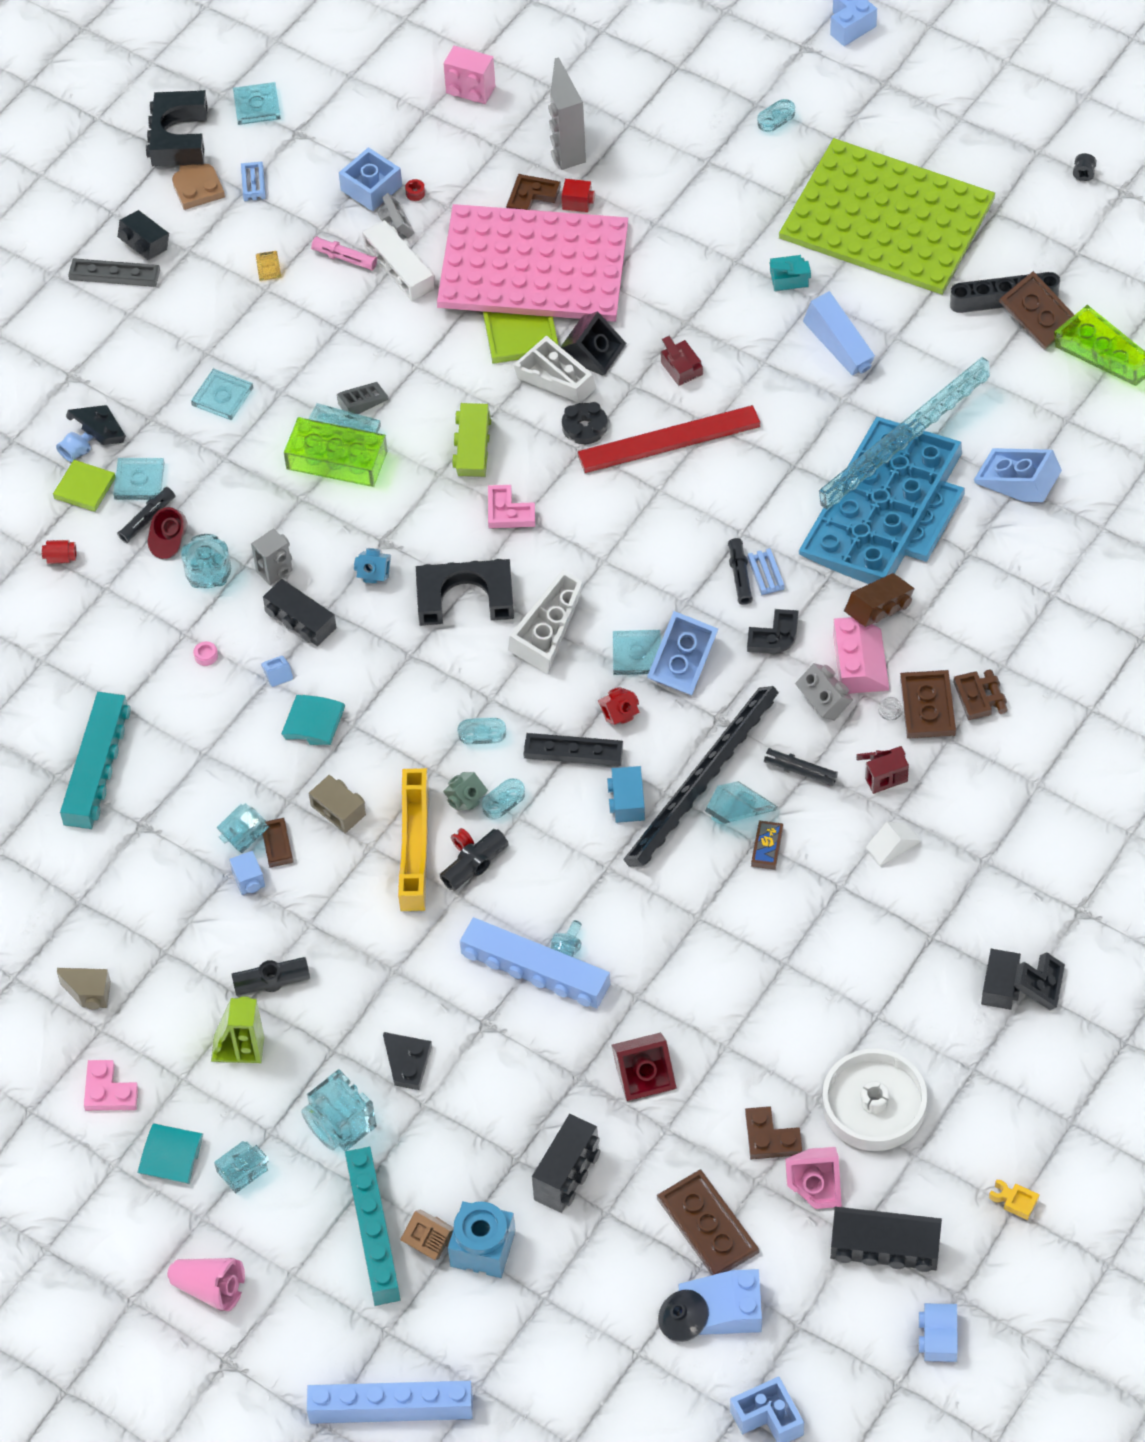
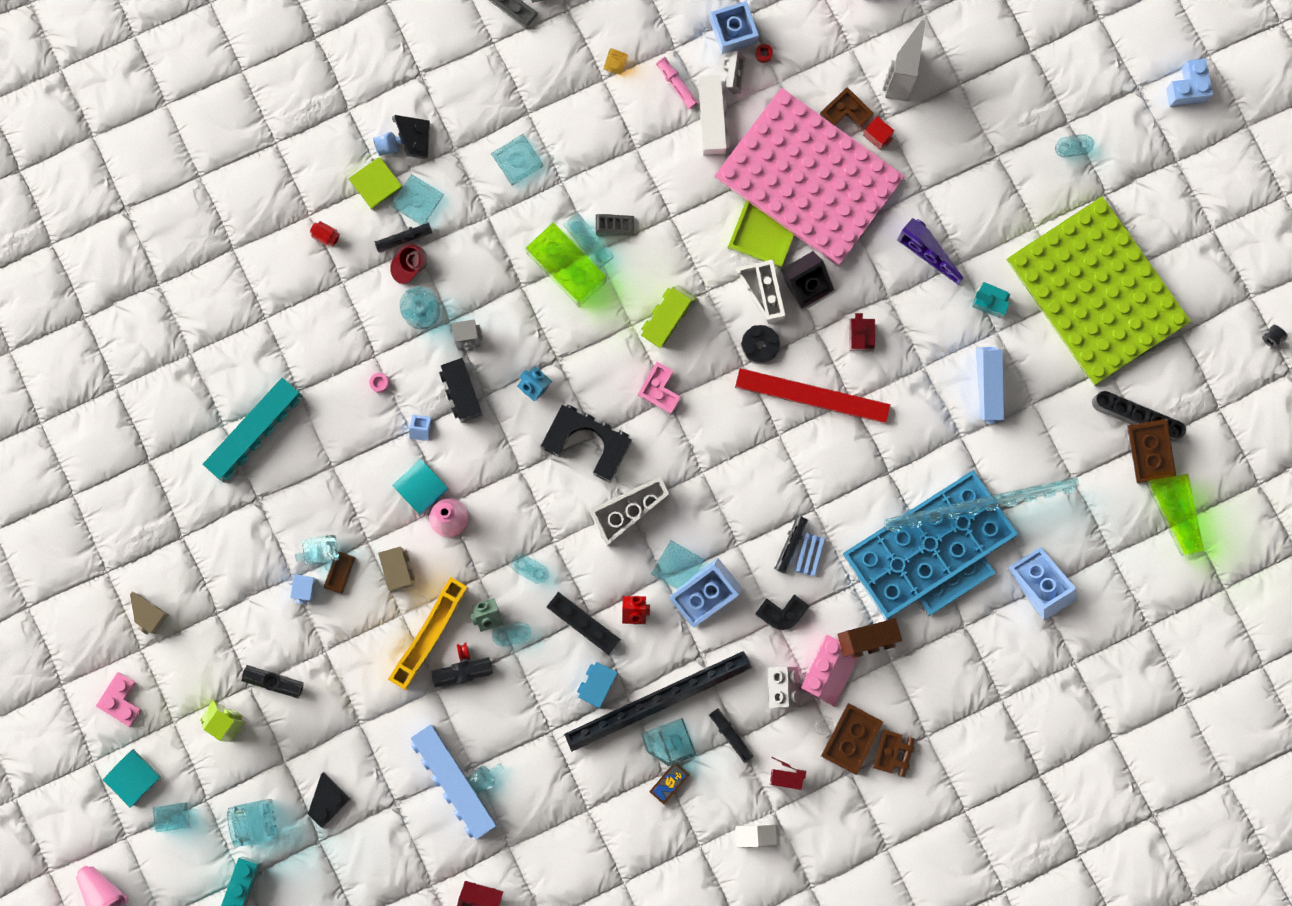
camera: 25 degrees right, 25 degrees up
(361, 726) = (454, 522): none -> bright pink cone
(688, 260) = (922, 243): none -> dark purple wedge

